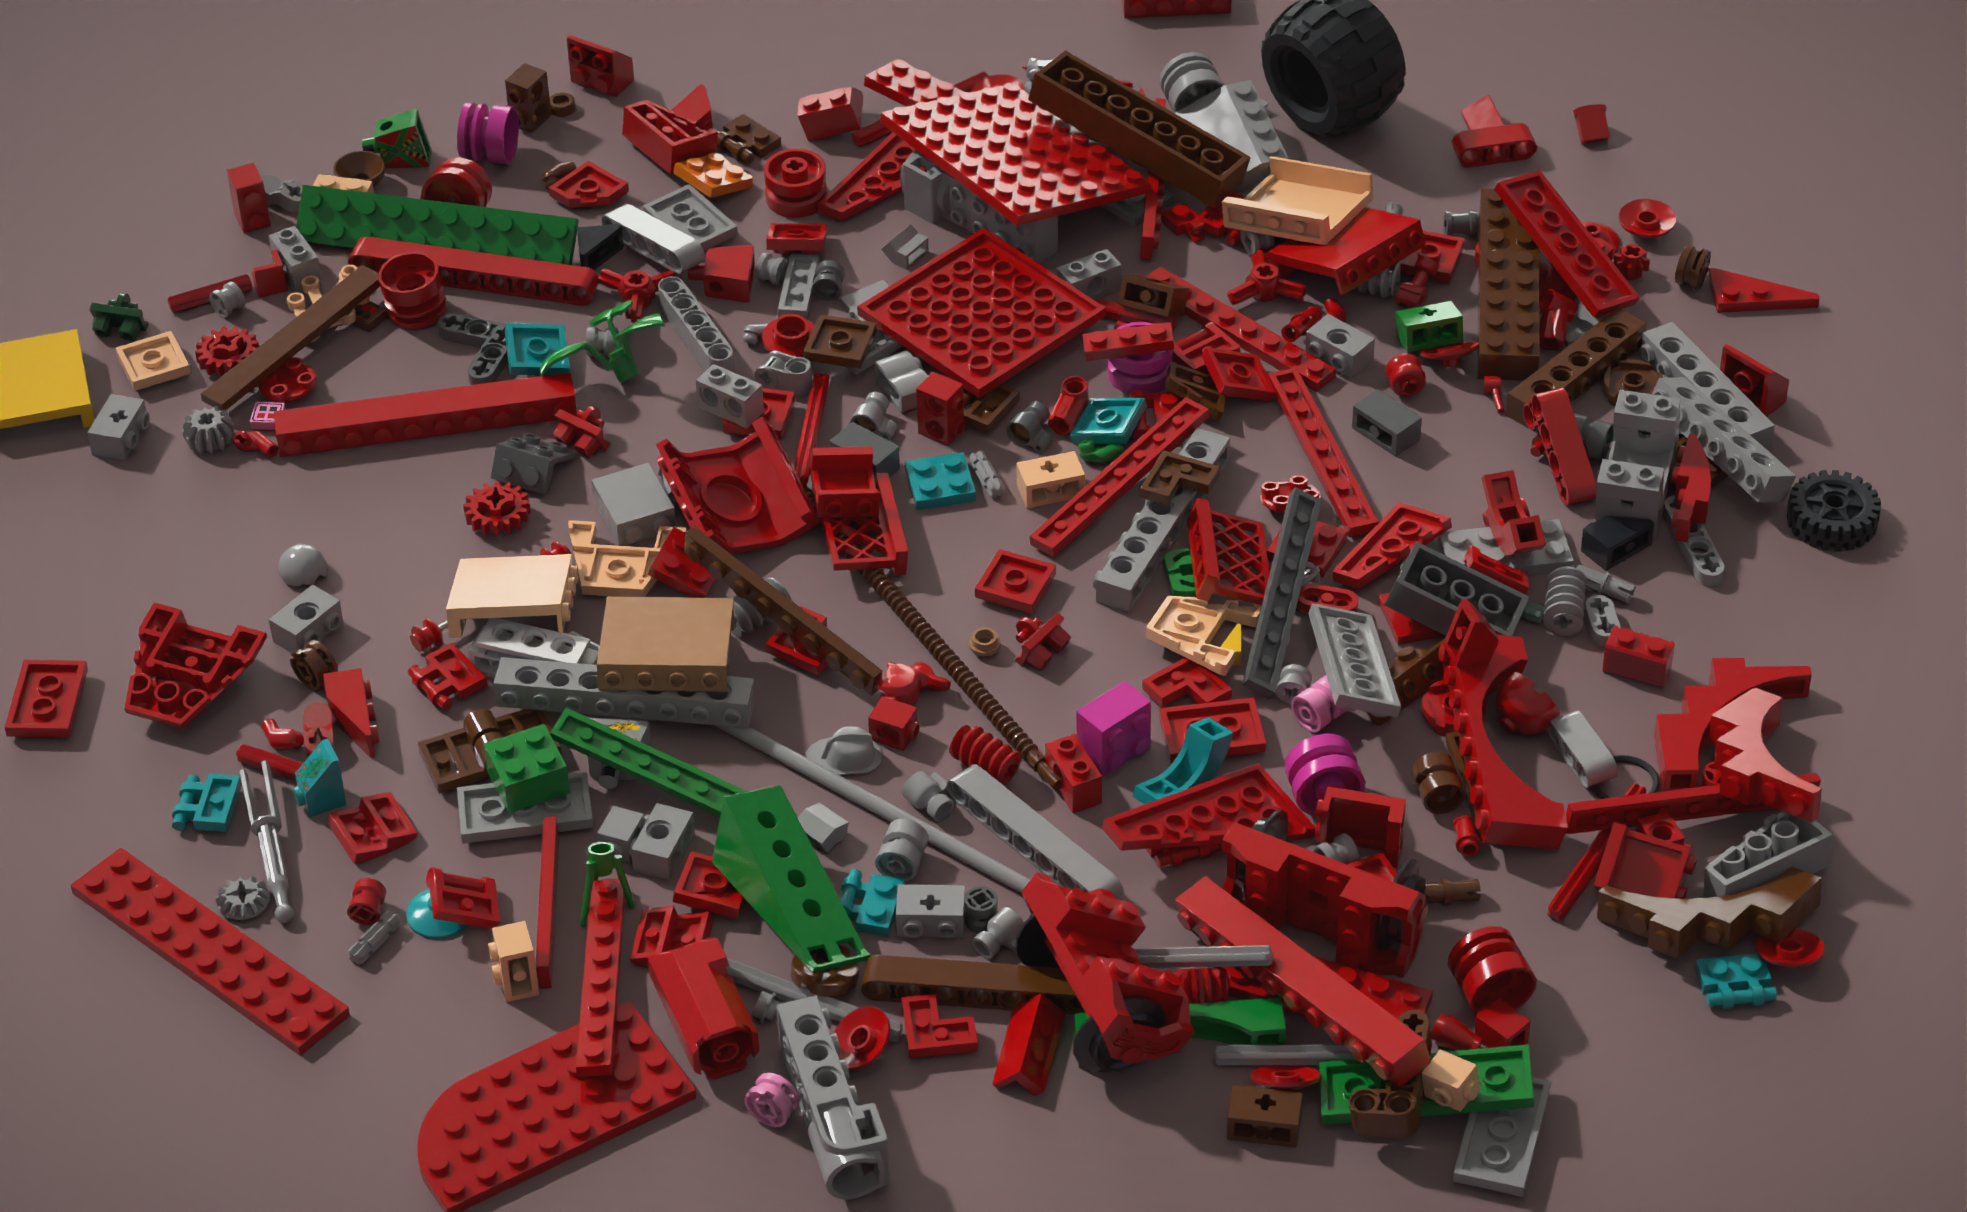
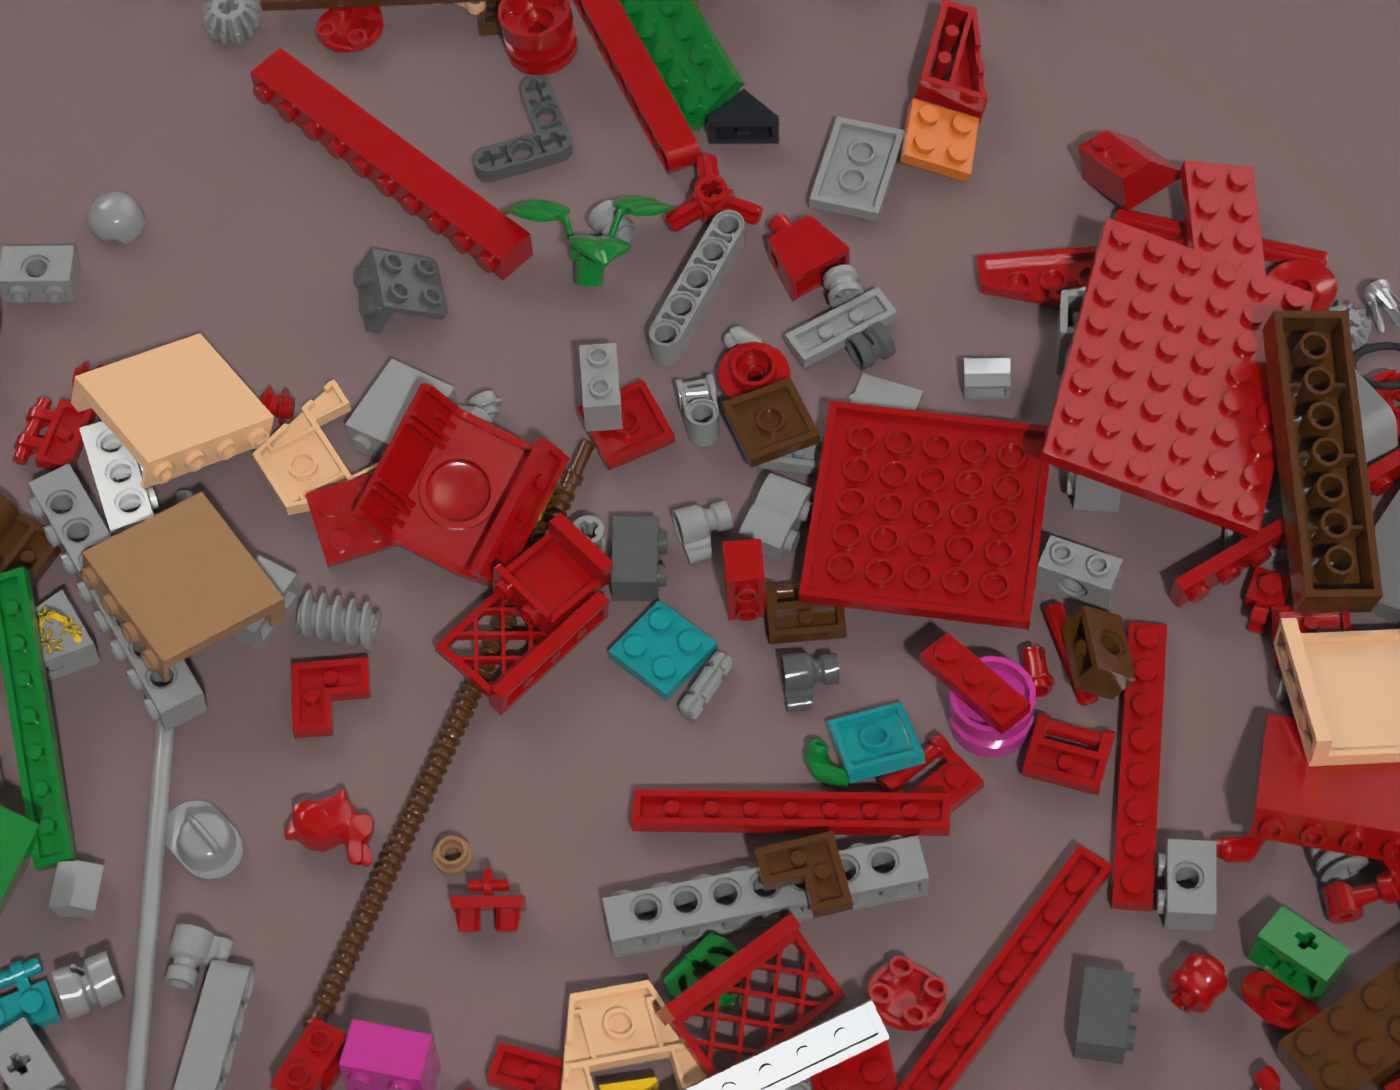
camera: 55 degrees right, 15 degrees up
(255, 442) = (248, 58): red arm -> none
(263, 415) = (296, 42): bright pink tile -> none
(496, 508) = (306, 310): red gear -> none
(531, 344) = (551, 175): teal plate -> none
(557, 172) = (830, 12): reddish brown arm -> none
(585, 426) = (476, 298): red hips -> none
(588, 187) = (829, 53): red plate -> none
(656, 239) = (787, 160): light grey beam -> none
(695, 107) = (1015, 60): red slope -> none
(747, 137) = (1039, 126): reddish brown plate -> none
(783, 611) = (315, 635): reddish brown plate -> none
(795, 182) = (986, 214): red wheel -> none
(804, 237) = (905, 274): red plate -> none
(811, 426) = (640, 481): red axle -> none
(893, 723) = (265, 854): red brick -> none
(981, 749) = (277, 970): red piece -> none
(1015, 581) = (562, 821): red plate -> none
(1050, 479) = (738, 749): light nougat brick -> none
(1069, 405) = (863, 691): red piece -> none
(1197, 387) = (992, 794): reddish brown wing -> none
(1238, 374) = (1049, 817): red plate -> none
(1265, 283) = (1232, 755): red bush -> none
(1301, 323) = (1189, 824): red pin -> none

